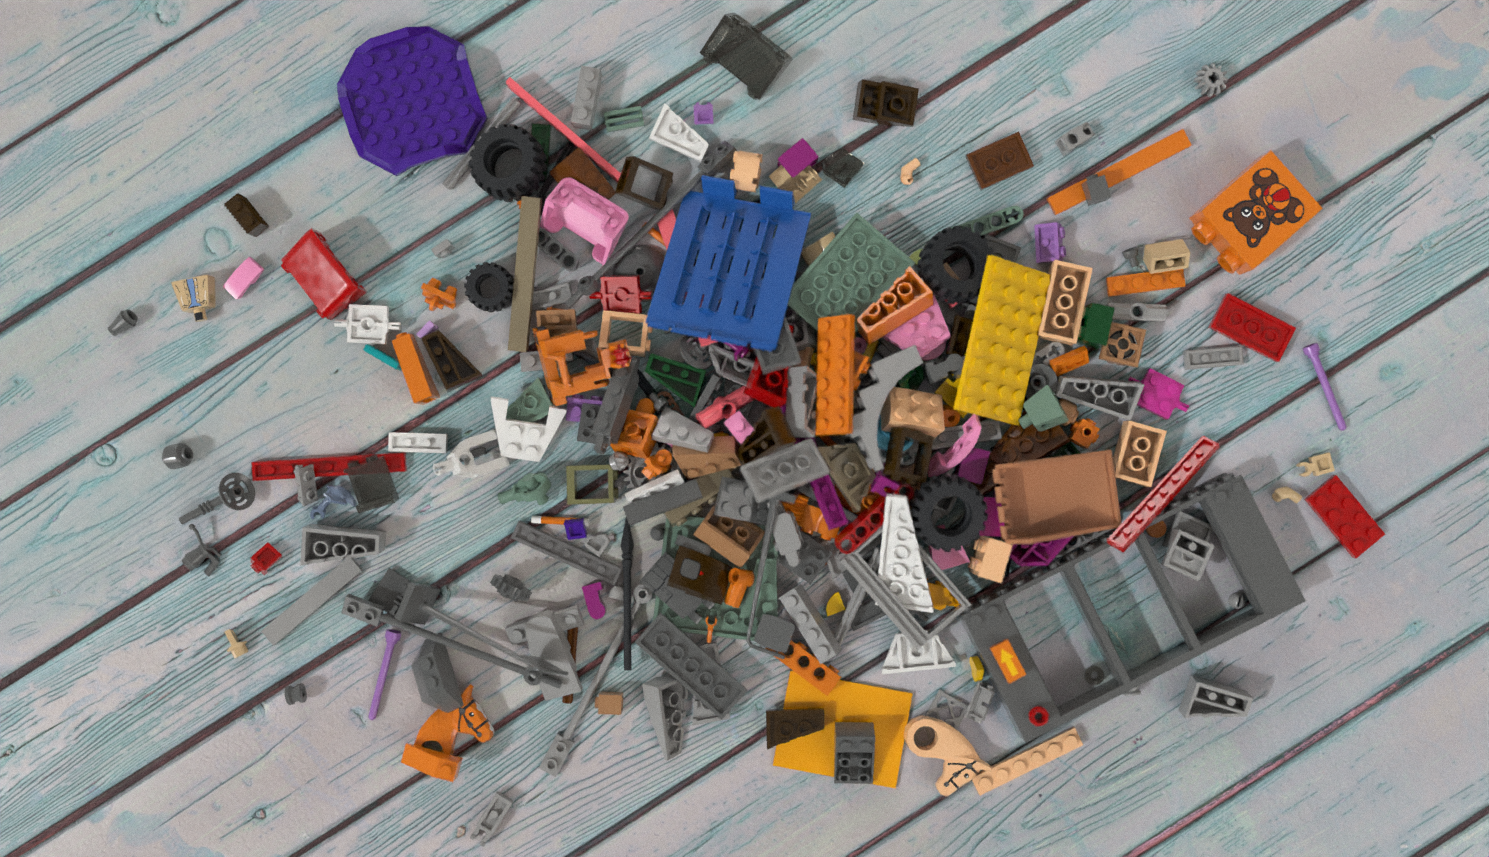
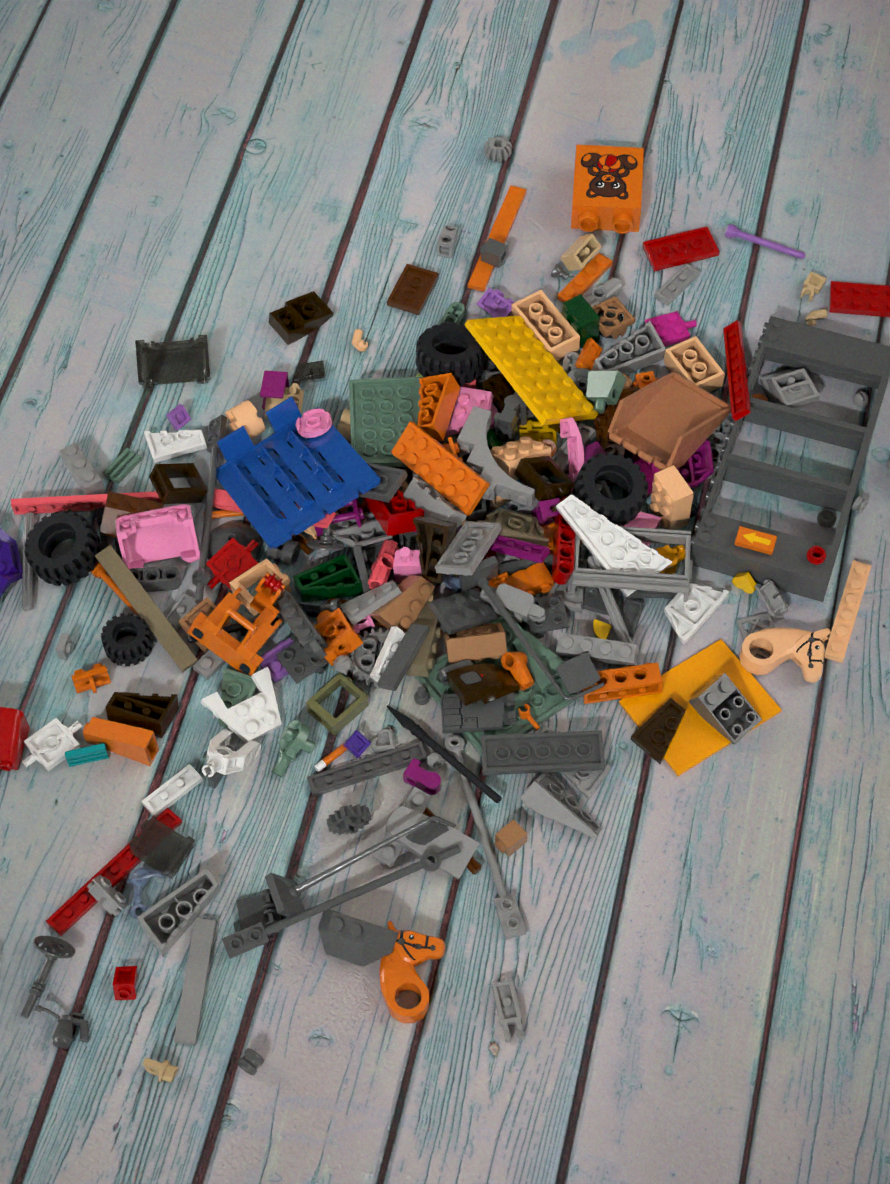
camera: 45 degrees left, 30 degrees down
(392, 637) = (289, 947): medium lavender piece -> none
(428, 328) = (104, 699): lavender tile -> none
(432, 762) = (415, 996): orange slope -> none
(657, 464) = (373, 634): orange hips -> none
(790, 230) = (314, 423): none -> bright pink tile

